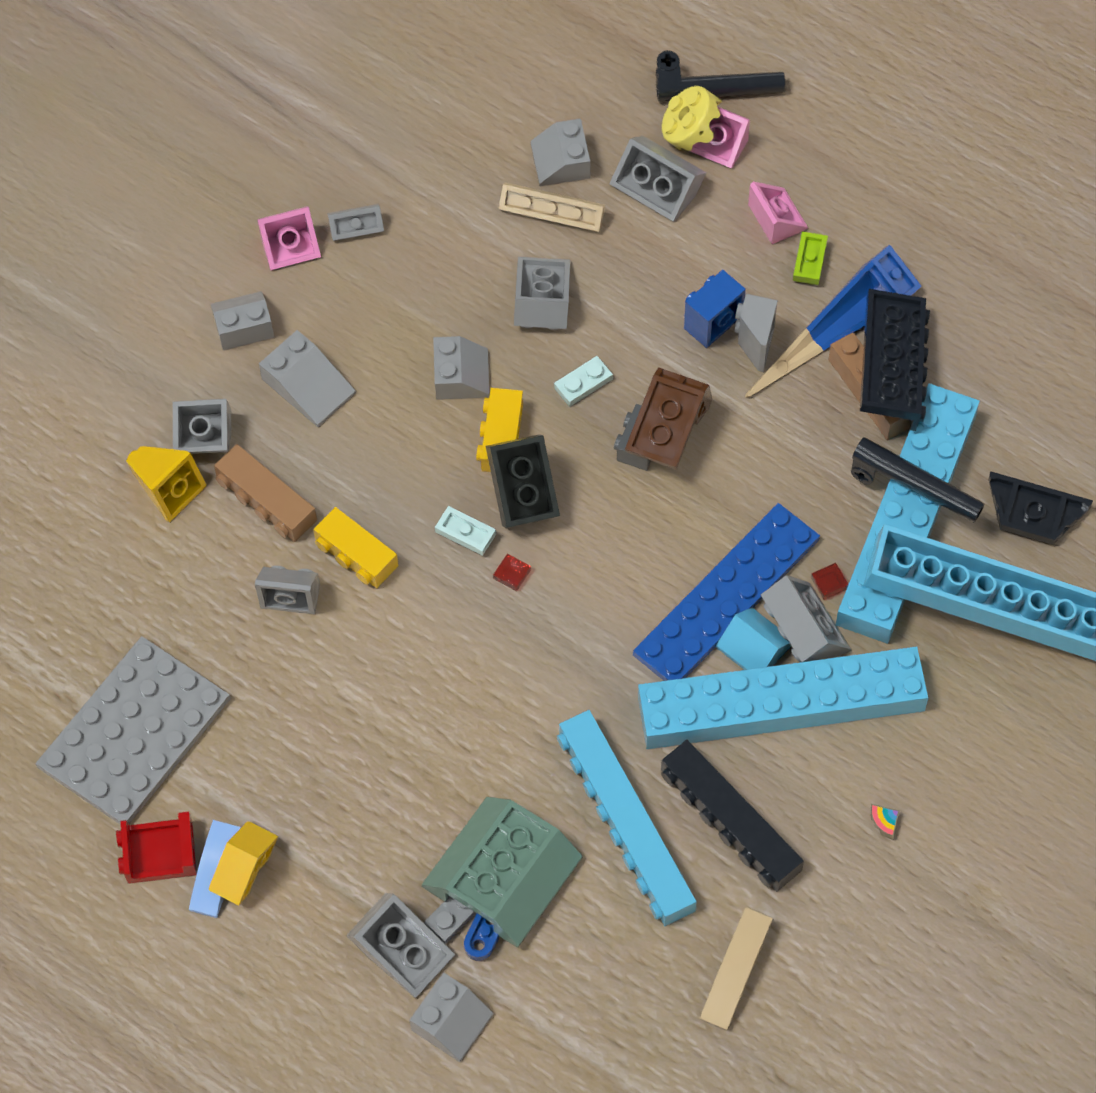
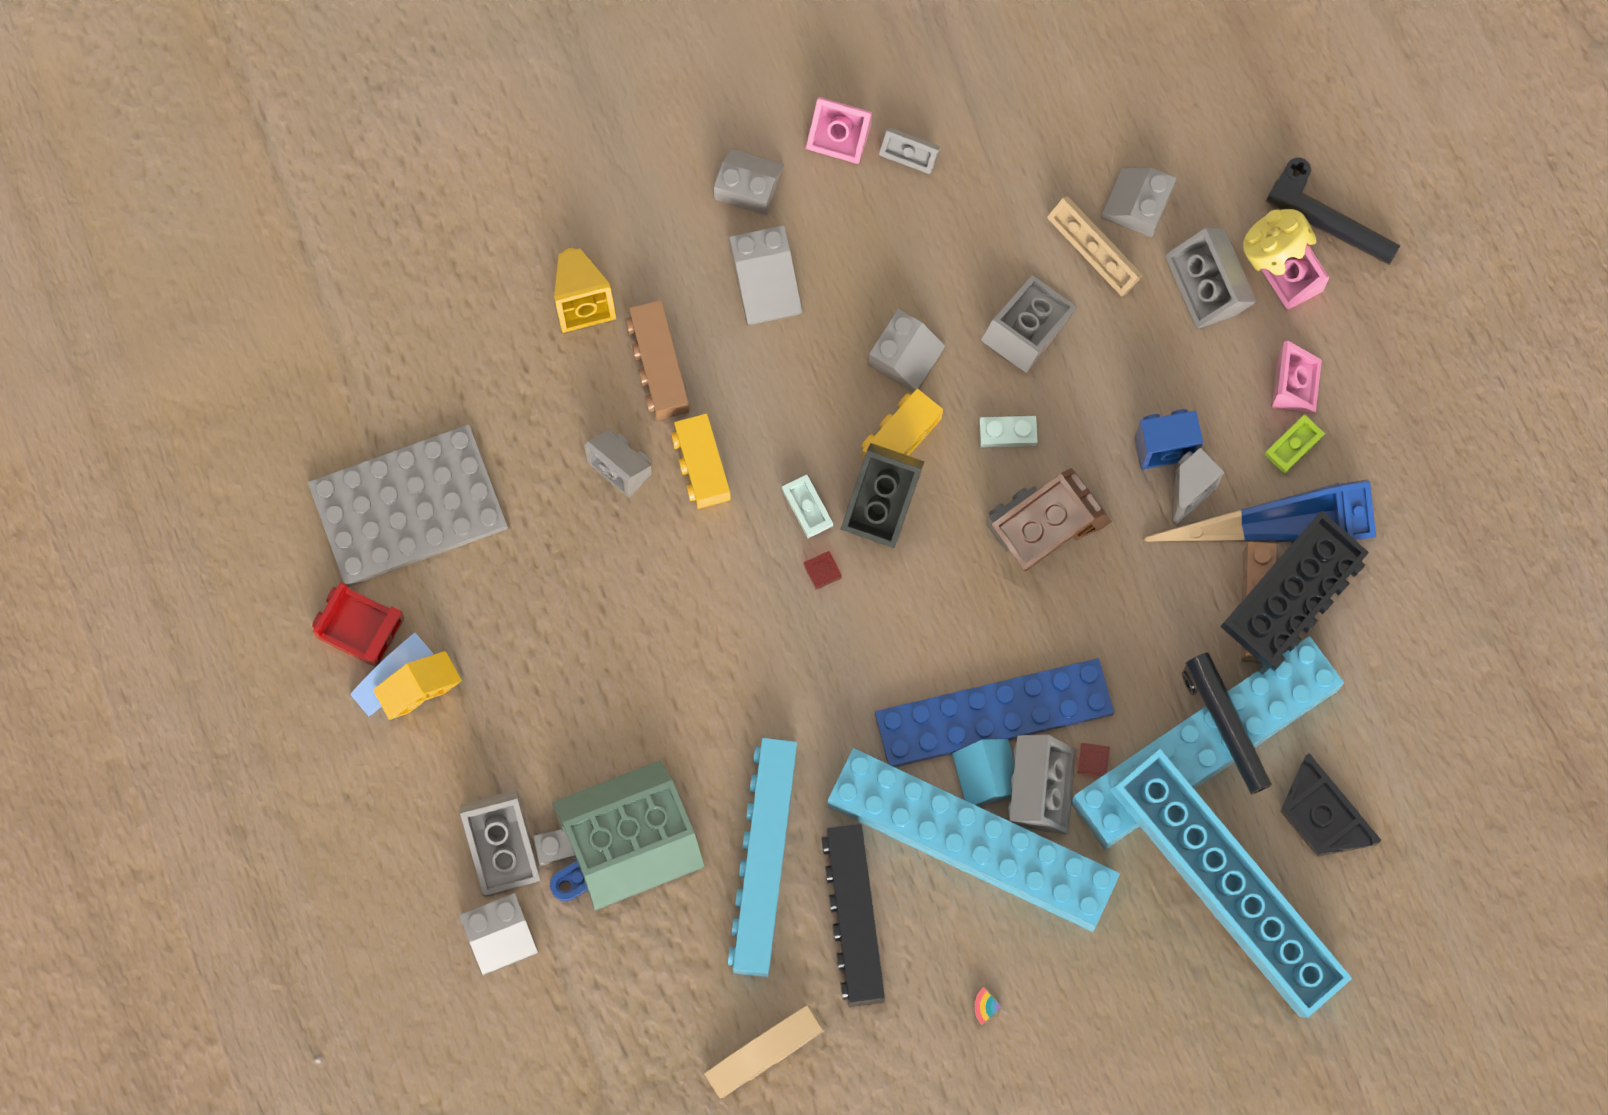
camera: 30 degrees right, 10 degrees up
(202, 426) = (642, 265): light grey slope -> none

